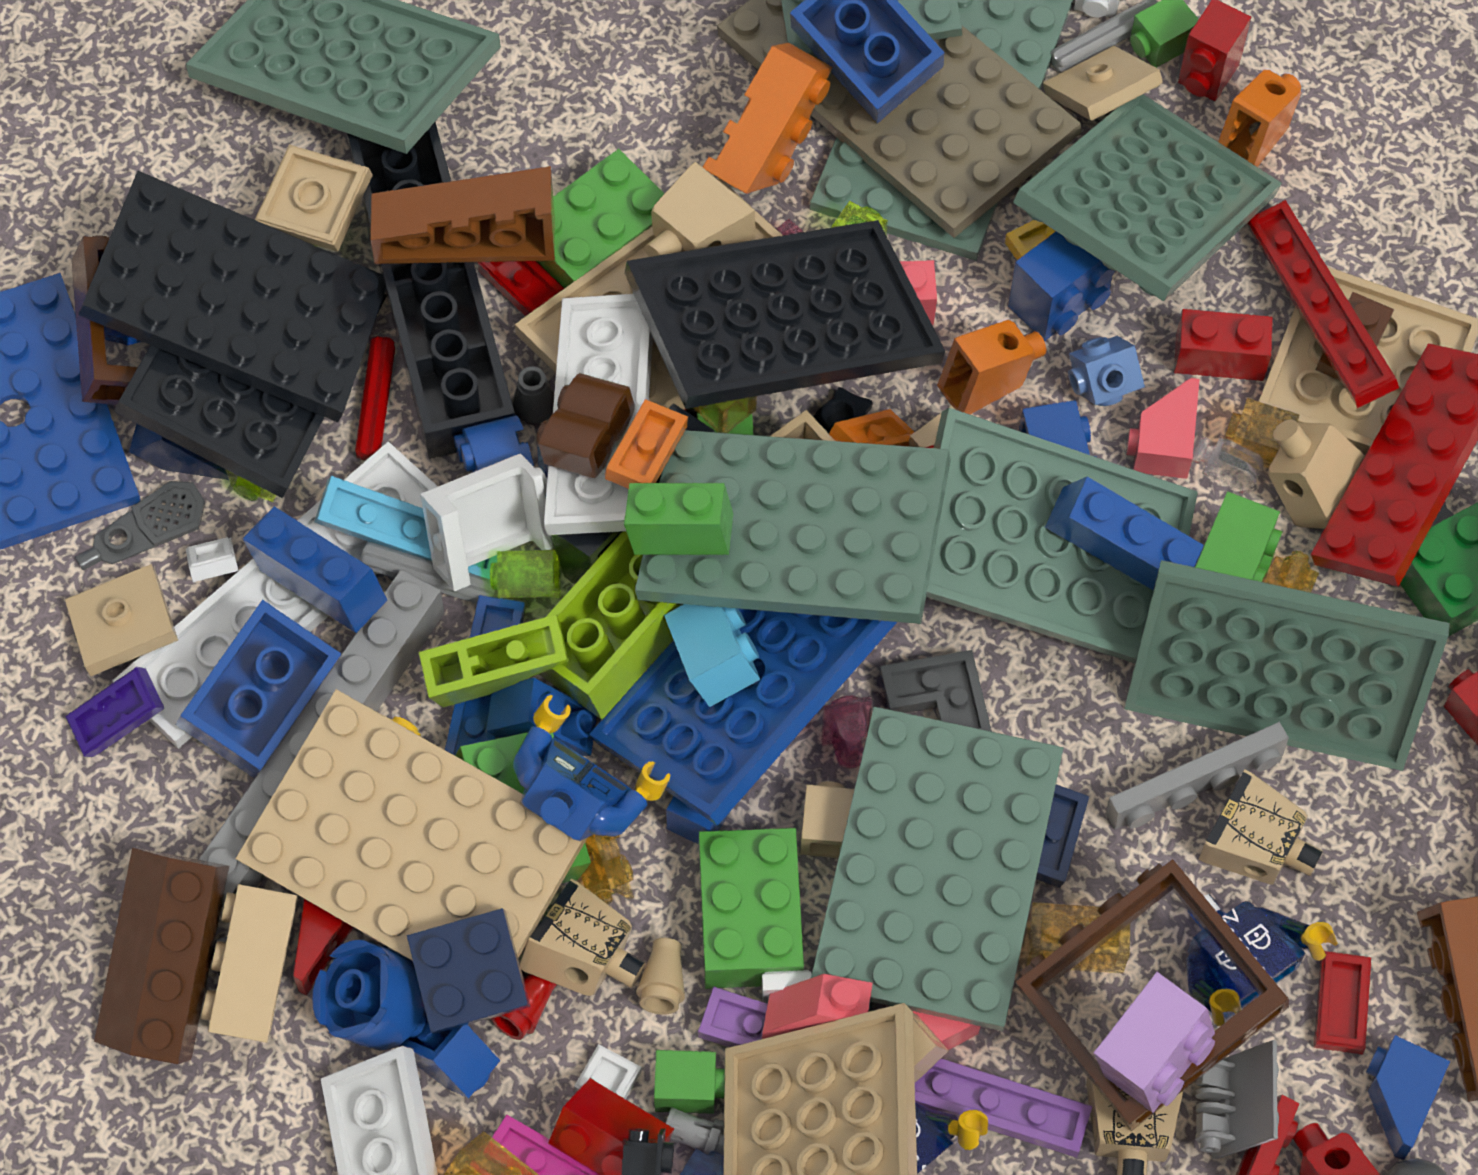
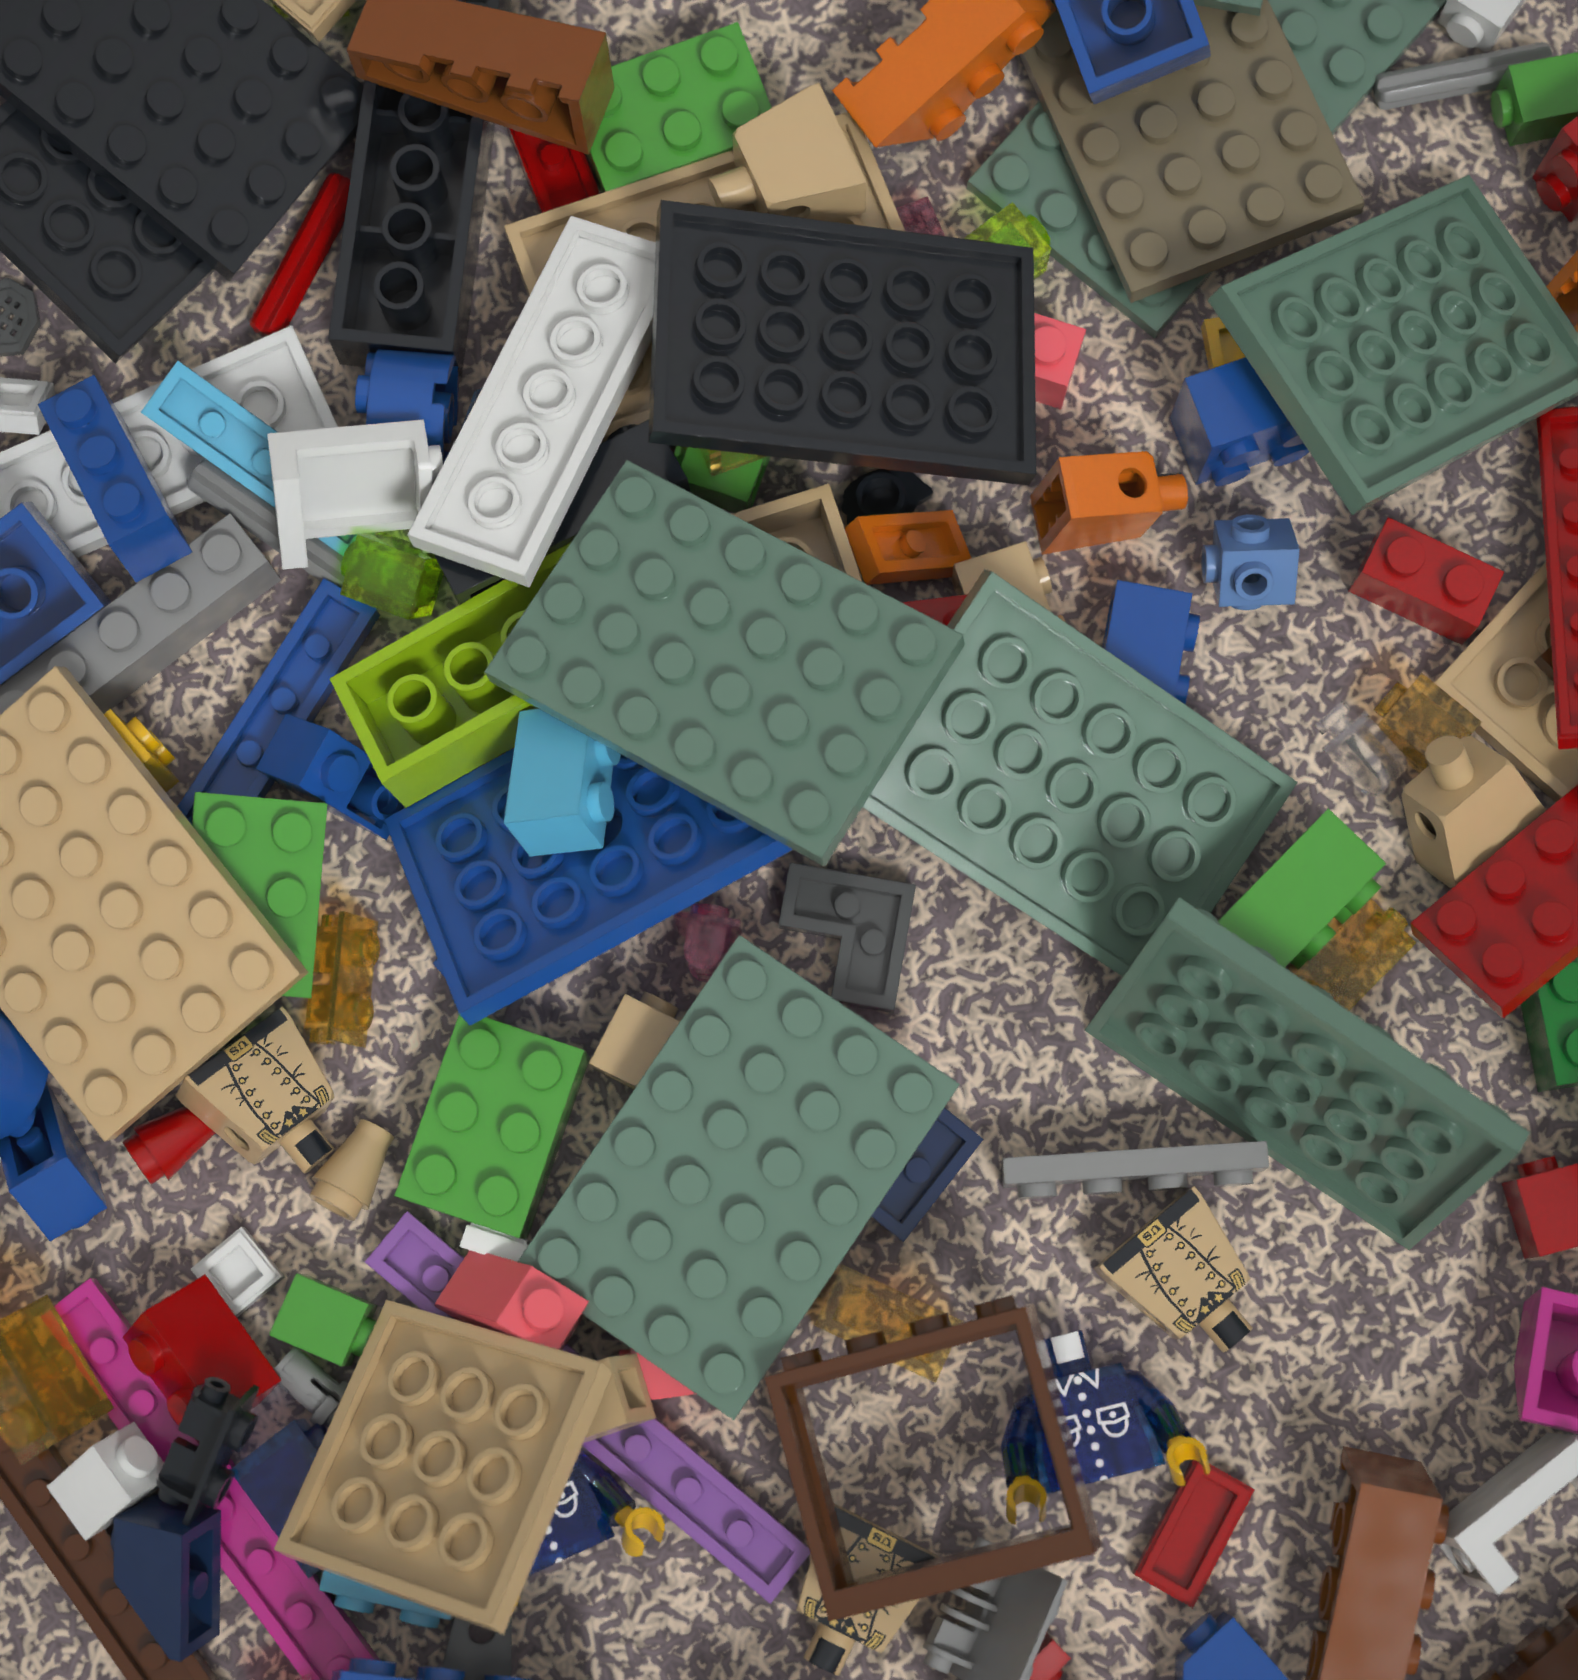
camera: 25 degrees right, 15 degrees up
(468, 971) = (87, 1097): dark blue plate -> none
(492, 660) = (281, 687): lime slope -> none
(533, 396) = (492, 325): dark grey cone -> none
(573, 790) = (300, 911): blue torso -> none
(585, 425) = (511, 418): reddish brown brick -> none
(646, 445) = (573, 480): orange plate -> none
(679, 518) = (566, 603): bright green brick -> none
(1103, 83) = (1425, 148): tan plate -> none
(1119, 531) = (1164, 821): blue brick -> none
(1156, 1043) = (888, 1555): lavender brick -> none
(1166, 433) = (1297, 677): coral slope -> none

